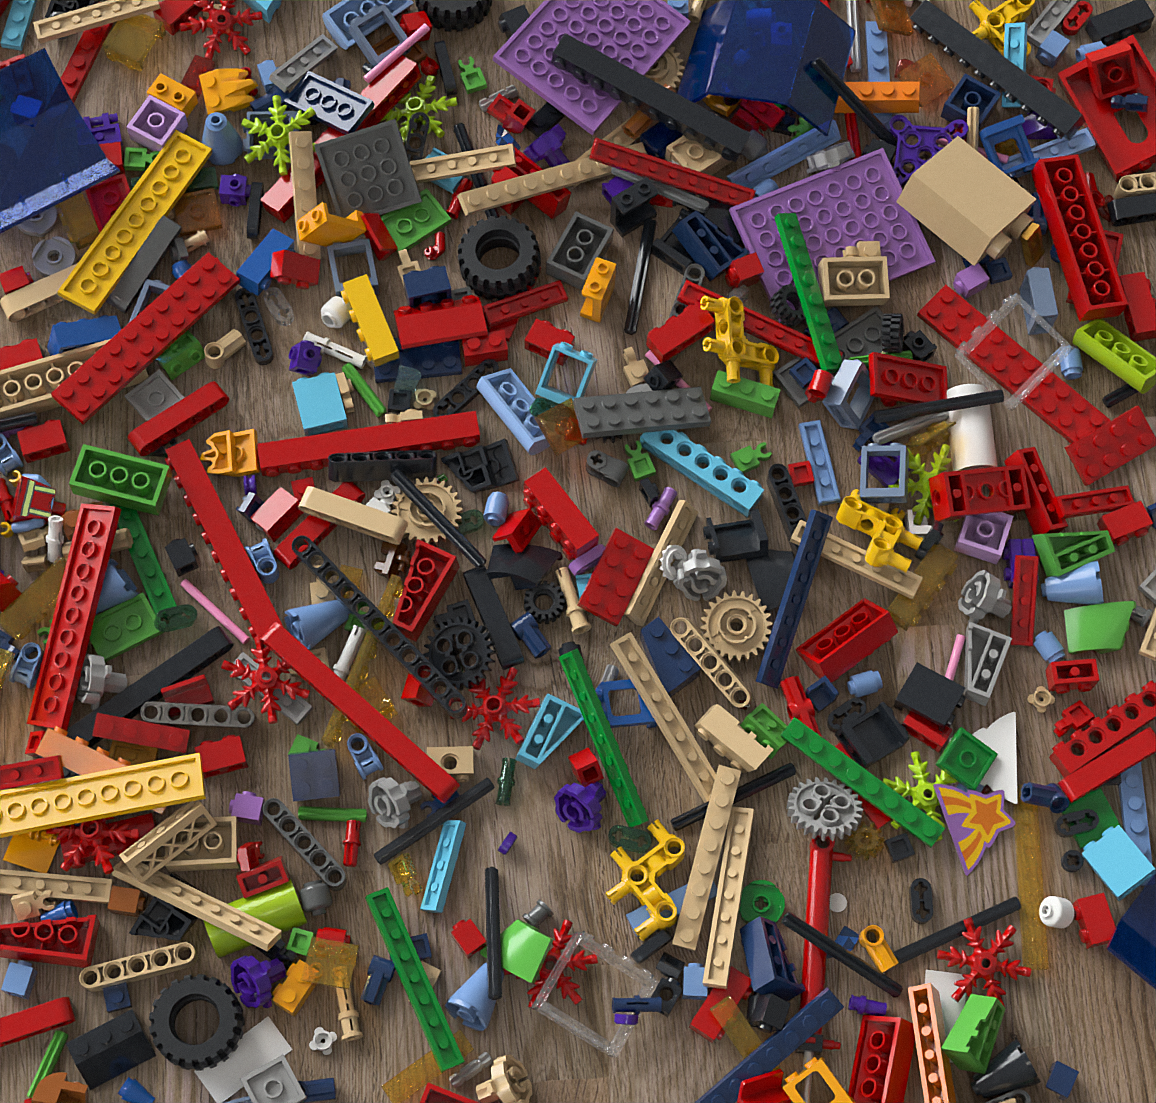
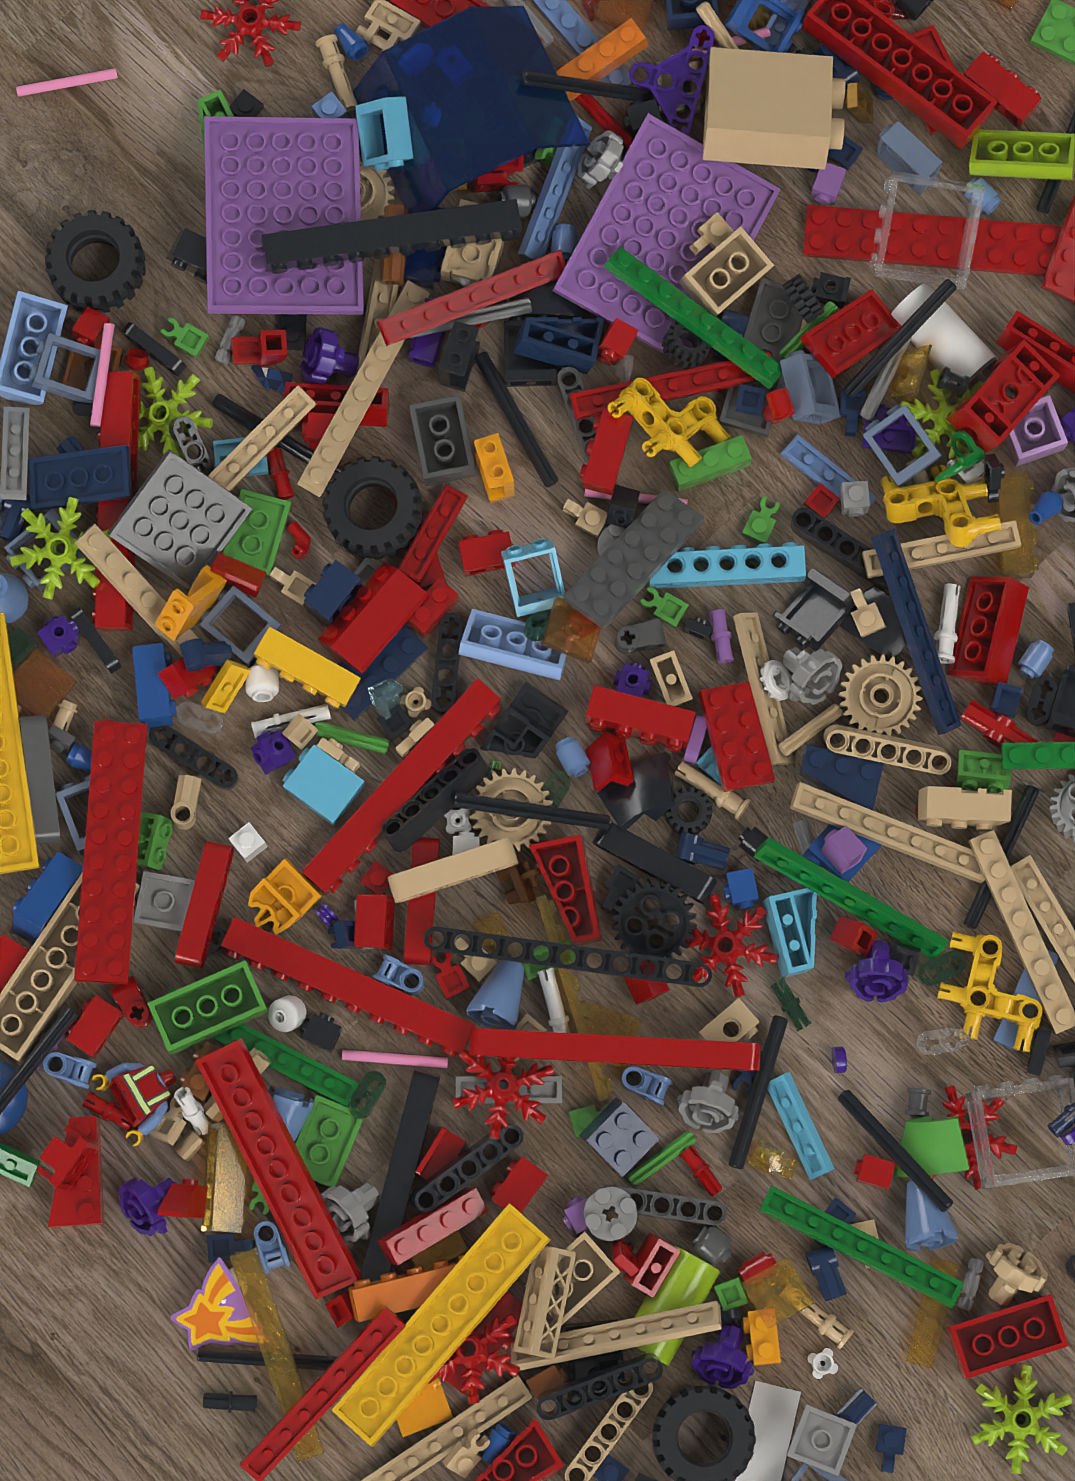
camera: 35 degrees left, 10 degrees up
(77, 437) = (129, 999): none -> red piece
(144, 921) = (590, 1397): none -> black beam
(169, 525) = (287, 1013): none -> white head
(240, 402) = (248, 842): none -> white brick
(276, 822) = (624, 1207): none -> light grey plate
(295, 588) = (451, 978): none -> red plate
(307, 259) = (203, 654): none -> dark blue piece
(310, 296) = (225, 686): none -> yellow plate
(333, 358) = (300, 731): none -> tan plate
(536, 678) = (741, 889): none -> blue brick
(578, 489) = (636, 673): none -> dark purple brick
(586, 890) = (941, 1034): none -> clear beam
(603, 505) = (671, 679): none -> tan slope
(610, 811) = (907, 956): none -> black plate
(624, 700) = (843, 849): none -> medium lavender brick
(670, 611) = (810, 729): none -> tan axle
(699, 38) = (396, 130): none -> medium azure window
(769, 566) = (867, 616): none -> tan plate
(815, 621) = (946, 634): none -> white pin
(824, 484) = (854, 498): none -> light grey brick
(917, 514) = (975, 456): none -> green piece
(953, 453) = (962, 382): none -> black bush
(953, 588) = (1047, 506): none -> blue cone

